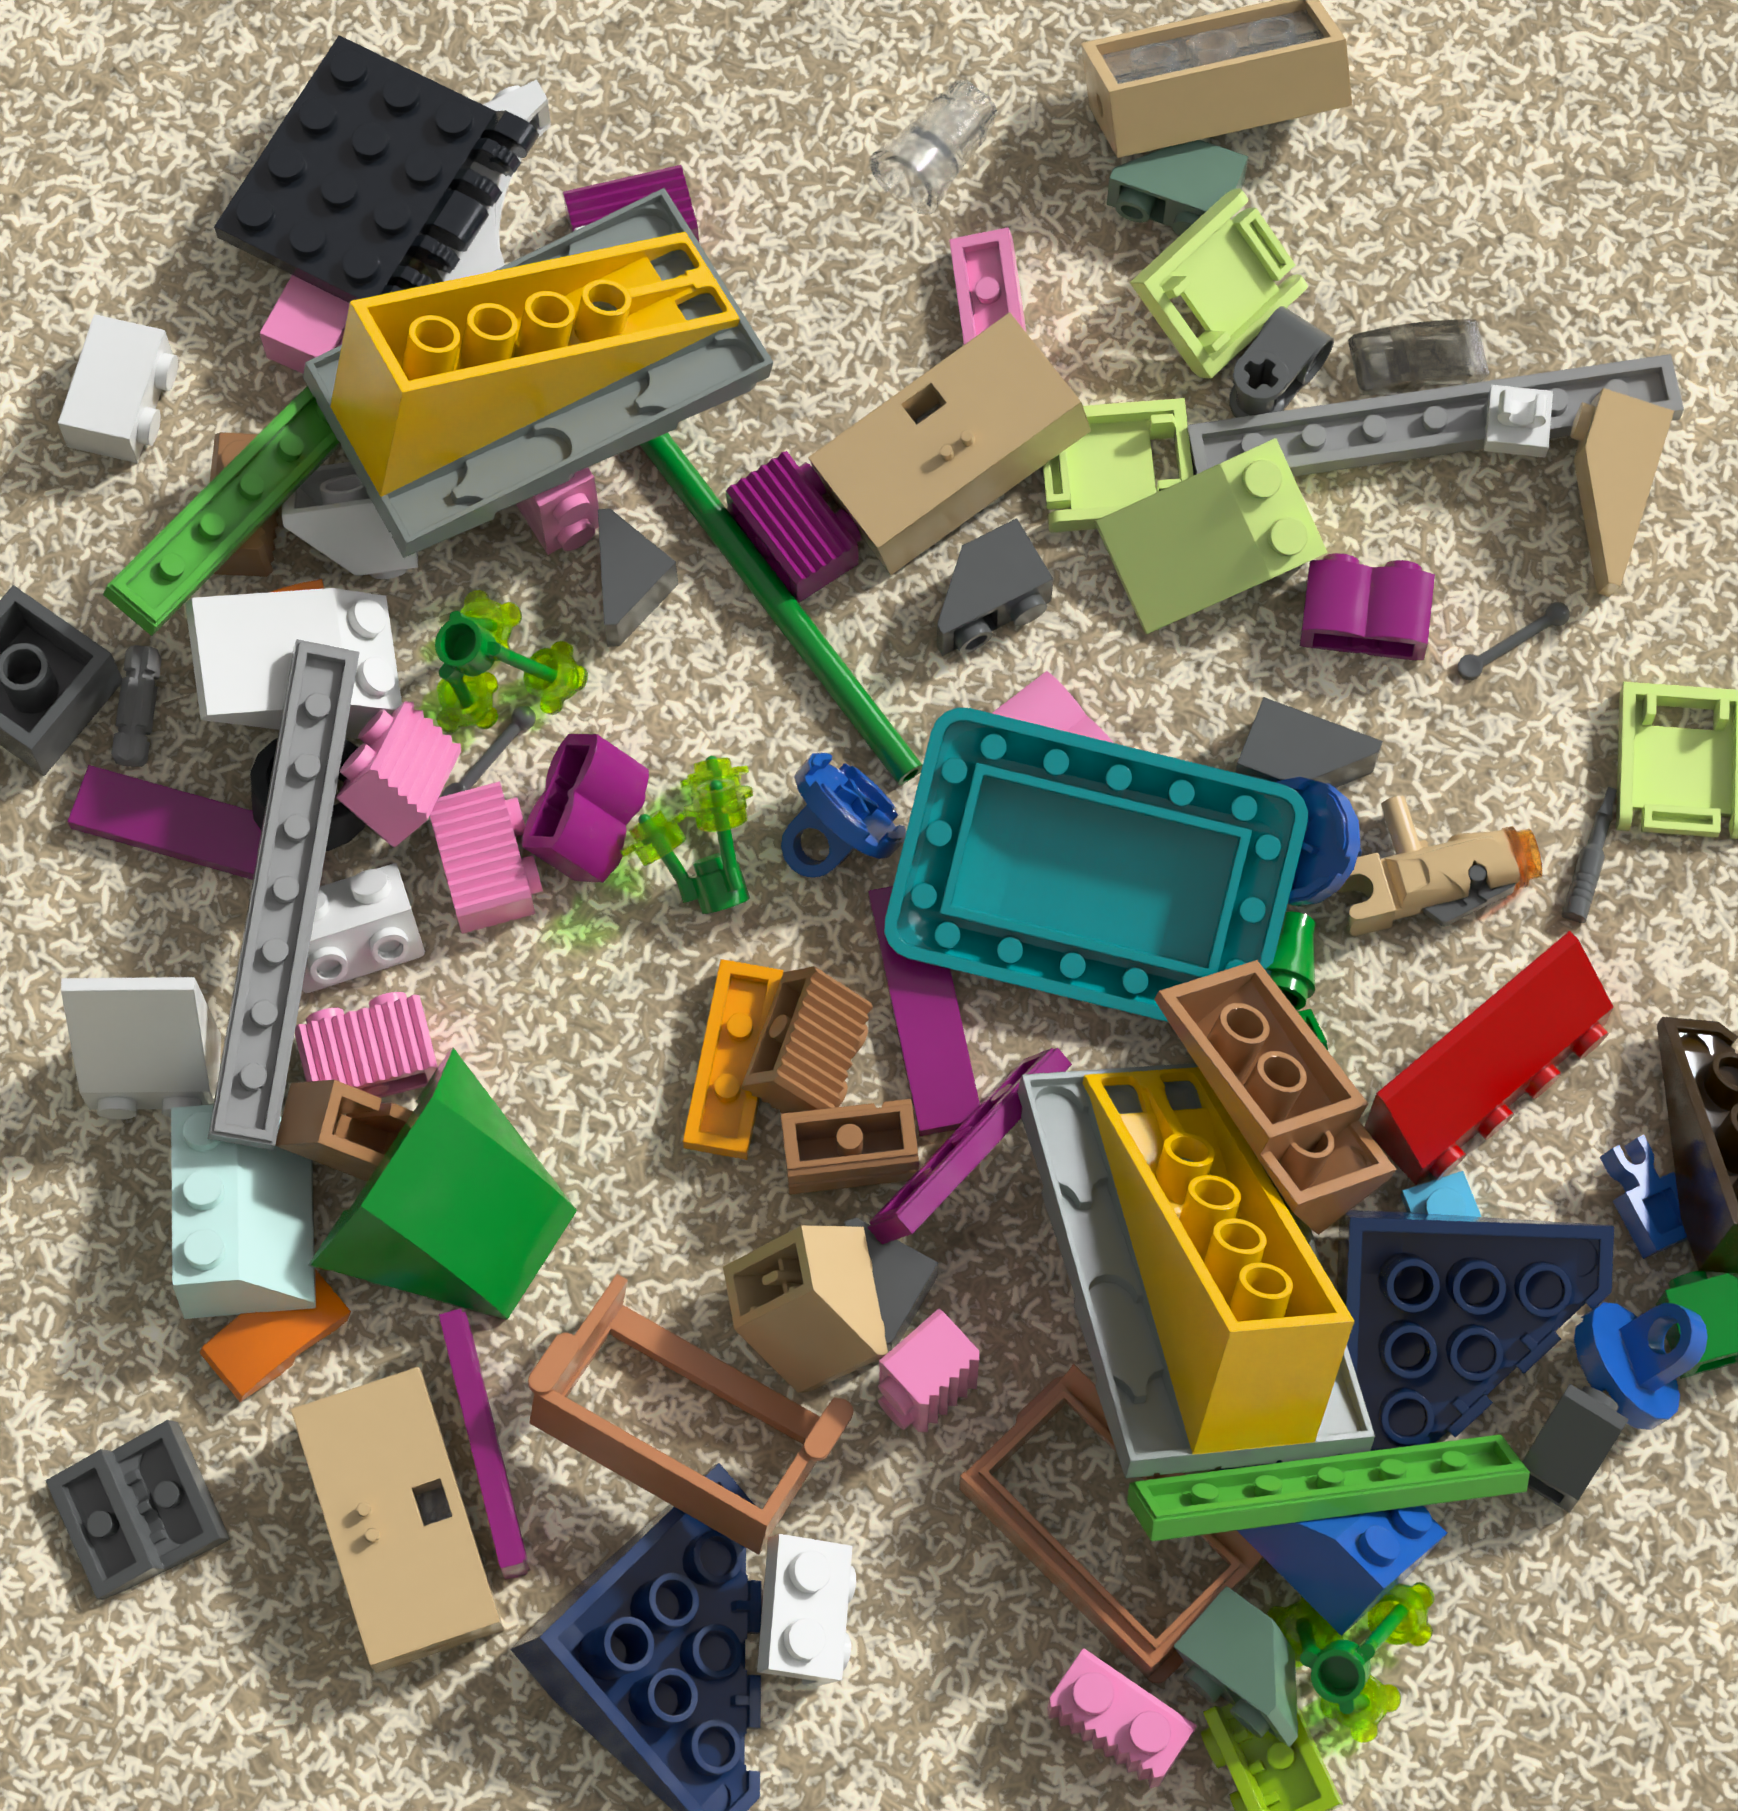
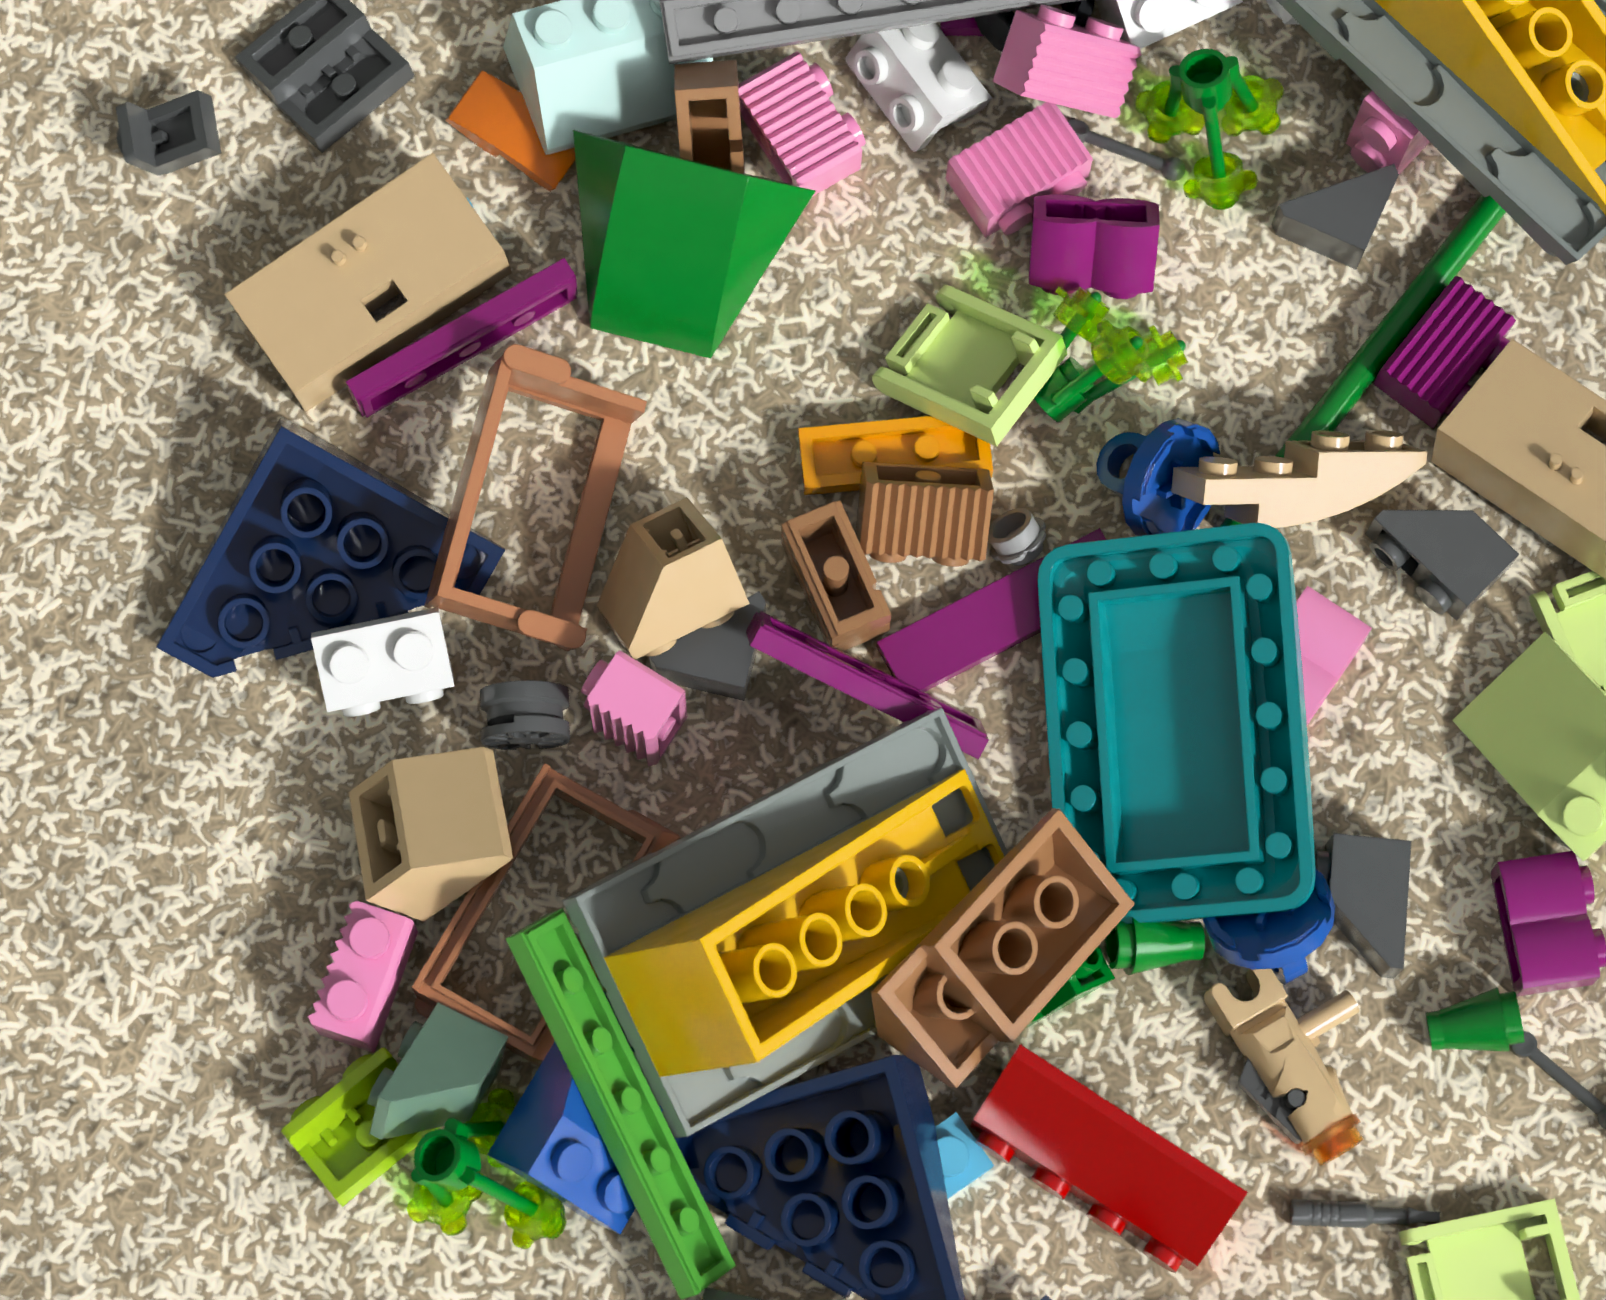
camera: 70 degrees right, 5 degrees up
(162, 1686) = (168, 134): none -> dark grey bracket
(663, 967) = (963, 361): none -> yellowish green container
(855, 966) = (1016, 537): none -> light grey plate
(891, 682) = (1308, 483): none -> slope
(892, 1485) = (525, 715): none -> dark grey wheel
(998, 1603) = (429, 829): none -> tan slope
(1444, 695) = (1478, 1023): none -> green cone

